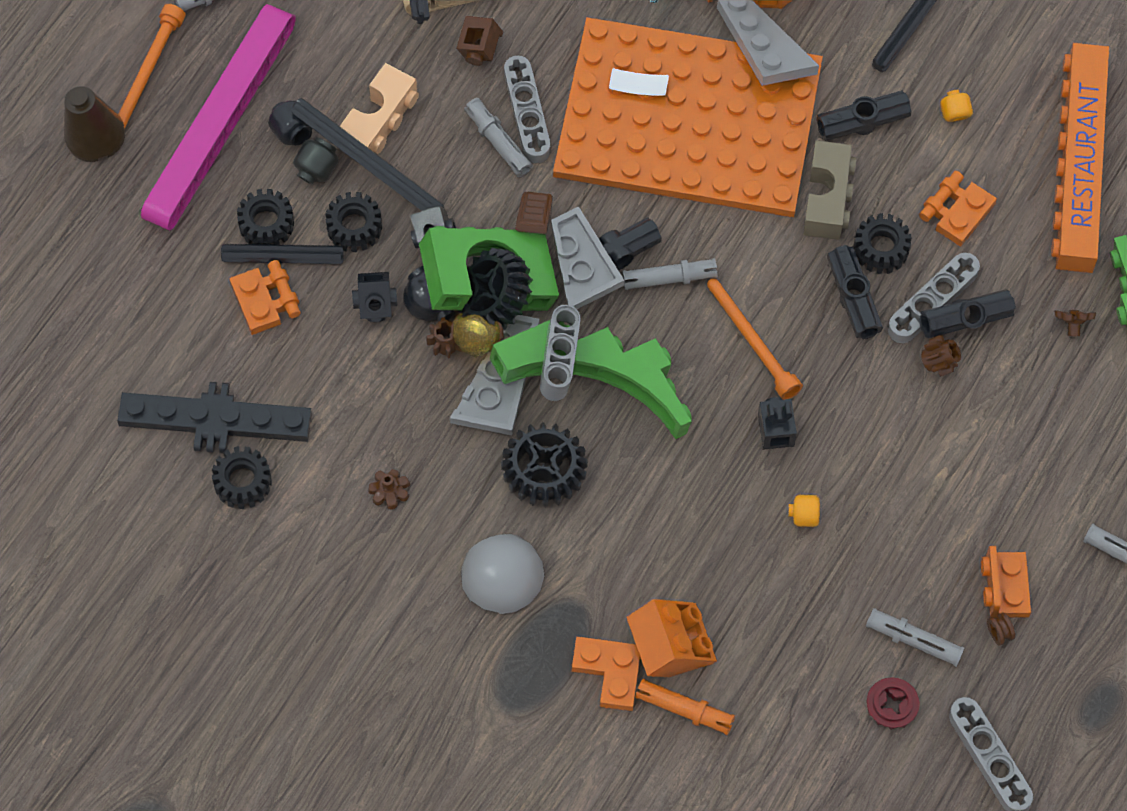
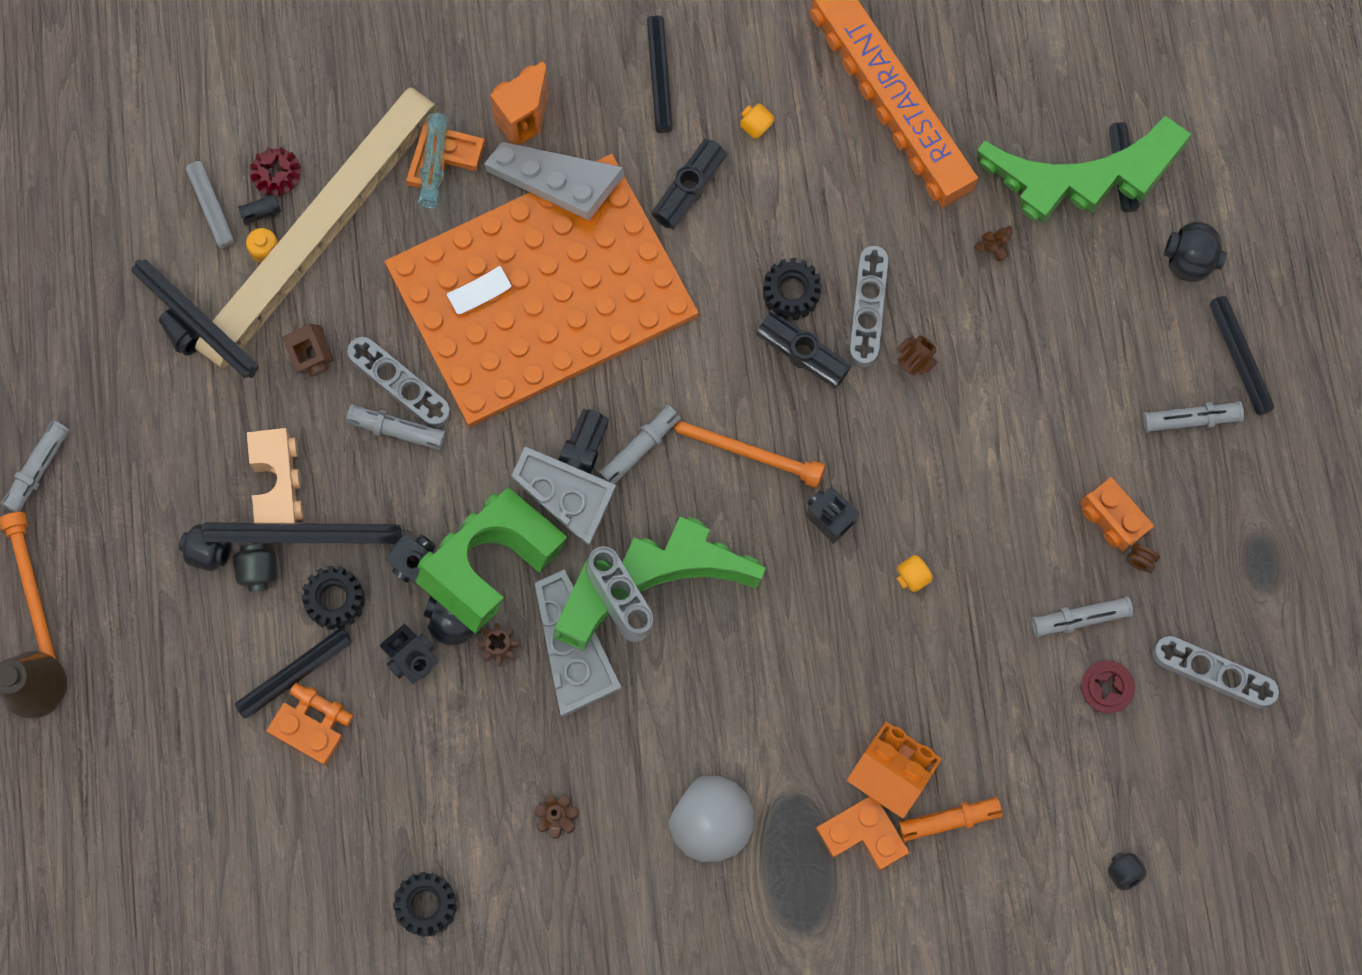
camera: 40 degrees left, 10 degrees up
(214, 417) = (354, 867): black hinge -> none
(218, 117) = (134, 589): dark pink beam -> none
(259, 204) = (241, 636): black tyre -> none
(475, 334) = (531, 629): clear yellow hair -> none
(498, 286) = (518, 567): black gear -> none
(528, 481) = (656, 693): black gear -> none
(534, 212) = (486, 474): reddish brown slope -> none
(826, 212) = (700, 249): dark tan arch -> none
(952, 317) = (909, 302): black piece -> none
(964, 215) = (836, 211): orange plate -> none

